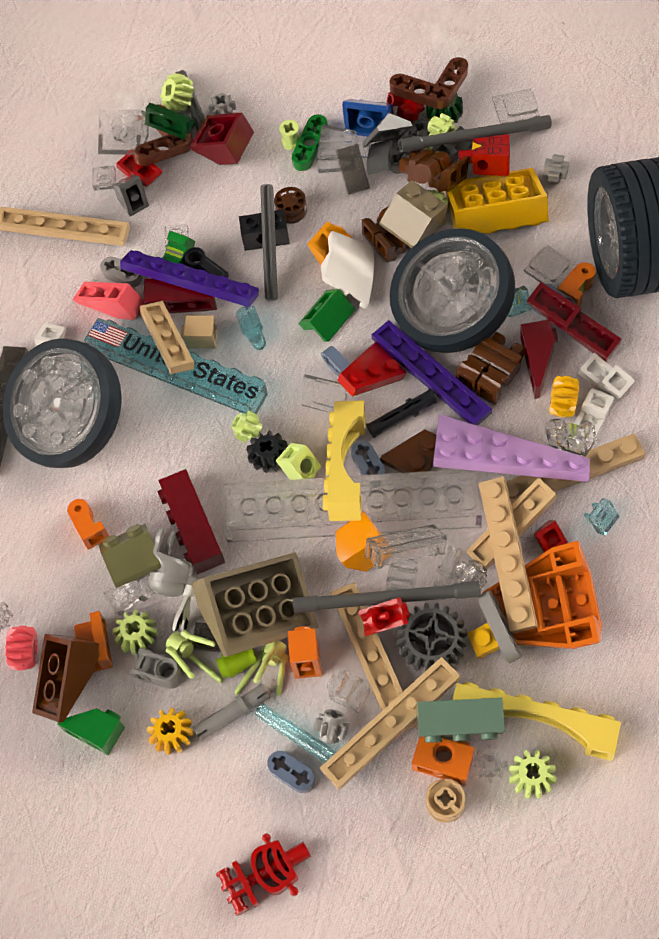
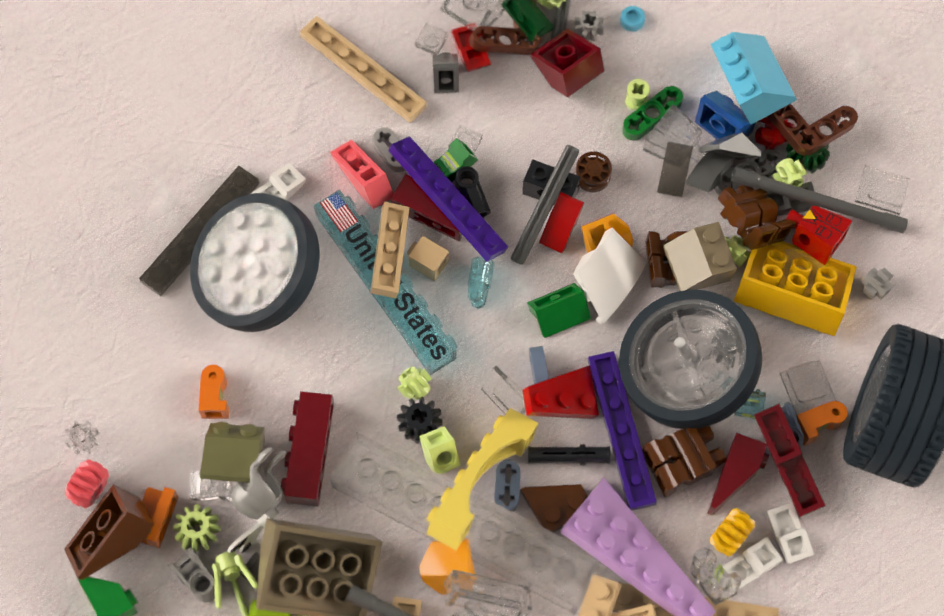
camera: 20 degrees right, 5 degrees up
(252, 87) = (632, 18): none -> medium azure tile
(289, 251) = (561, 222): none -> red slope
(370, 72) = (753, 74): none -> medium azure slope

